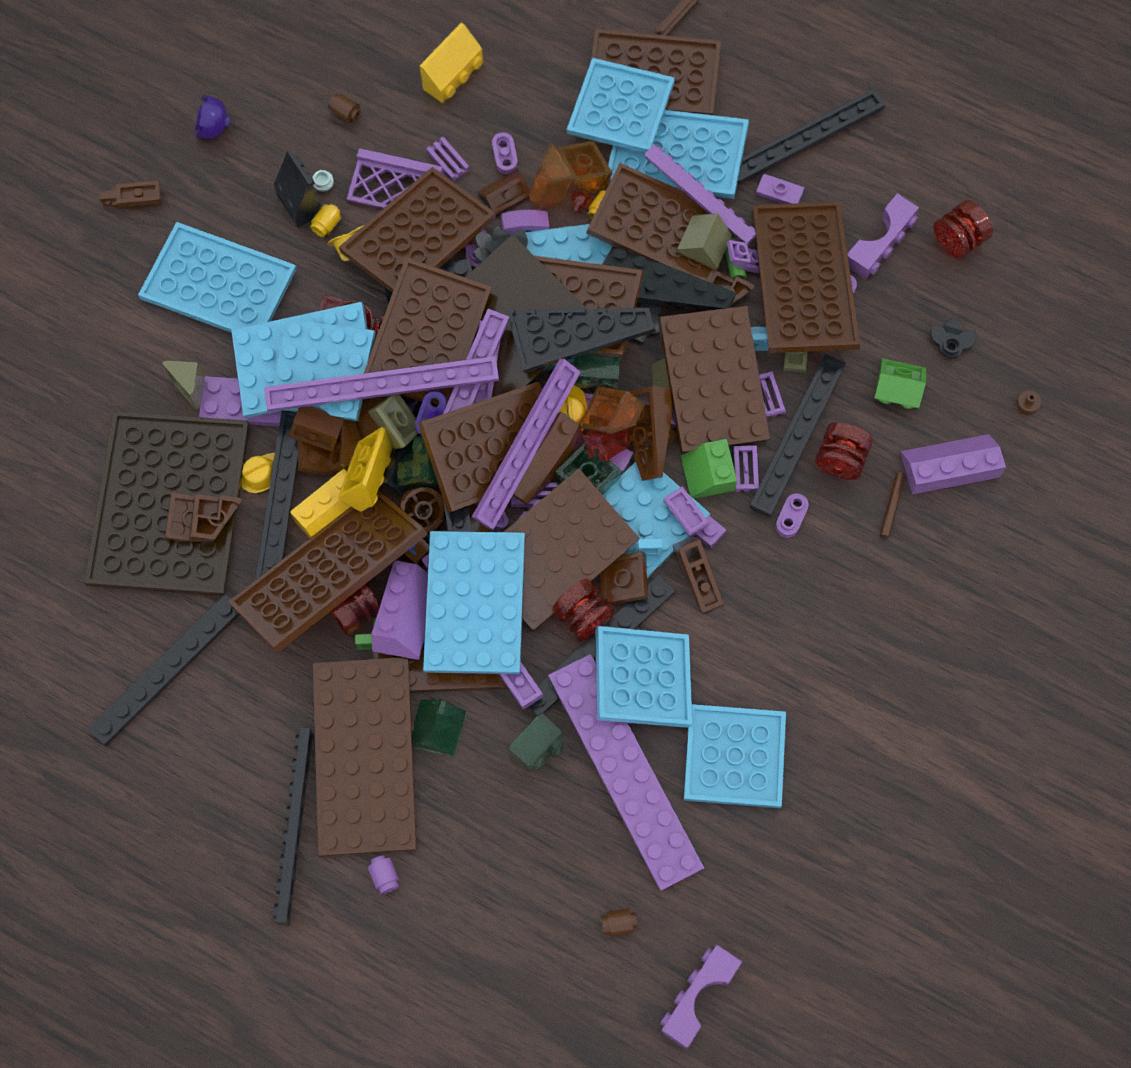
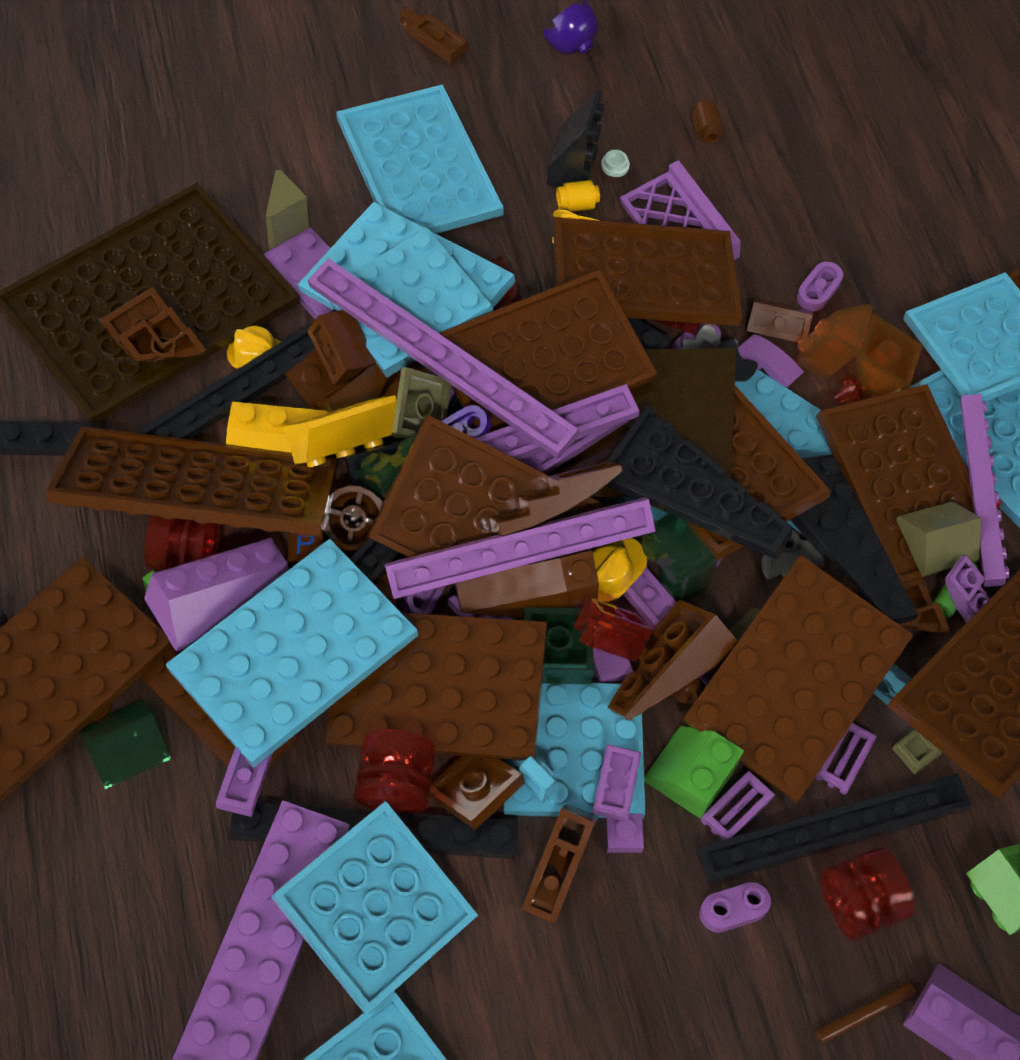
camera: 40 degrees right, 10 degrees down
(438, 147) = (759, 228): medium lavender tile -> none
(451, 64) = (853, 164): yellow slope -> none
(520, 396) = (565, 492): none -> reddish brown slope
(536, 744) = (186, 853): clear green slope -> none
(611, 411) = (647, 603): clear orange slope -> none

